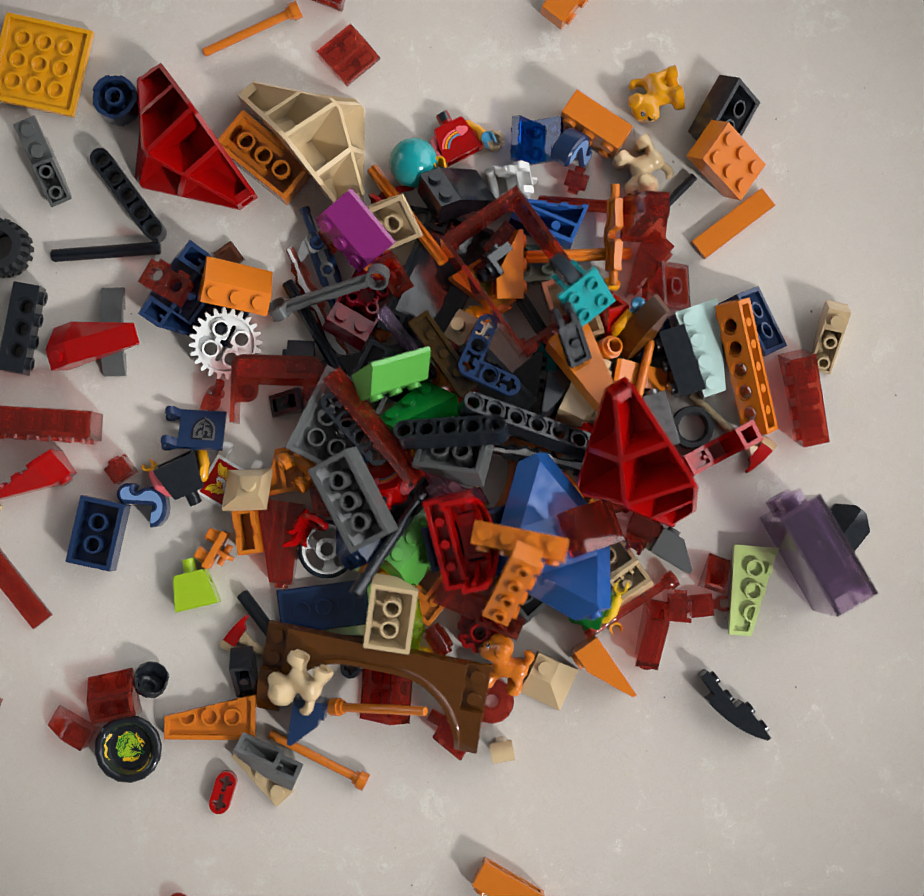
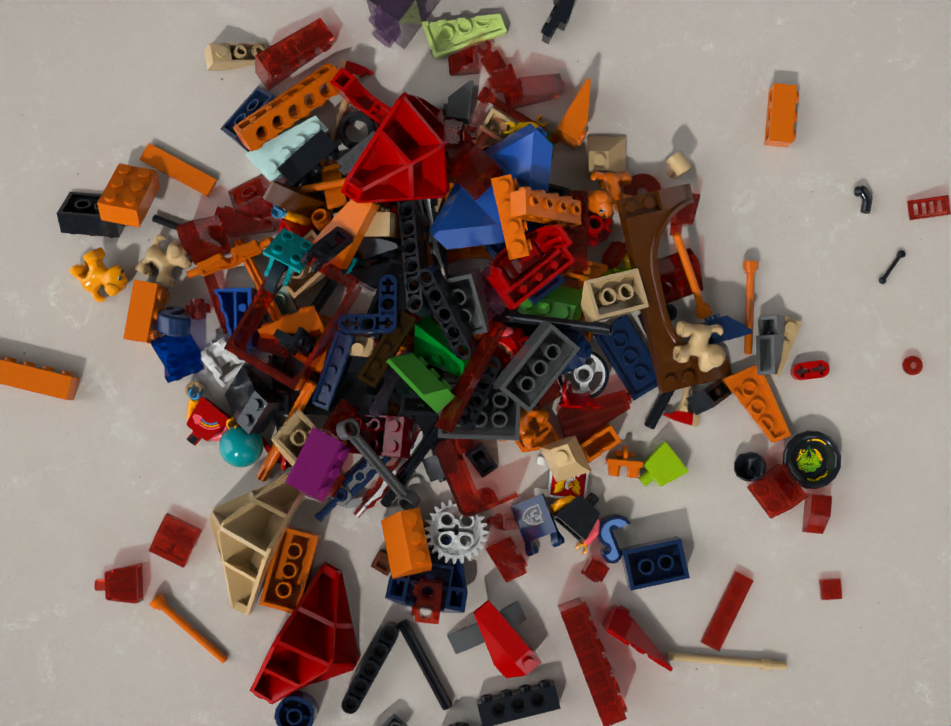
camera: 110 degrees left, 0 degrees up
(174, 382) = (506, 559): none -> clear red slope
(447, 289) = (333, 370): none -> dark blue tile

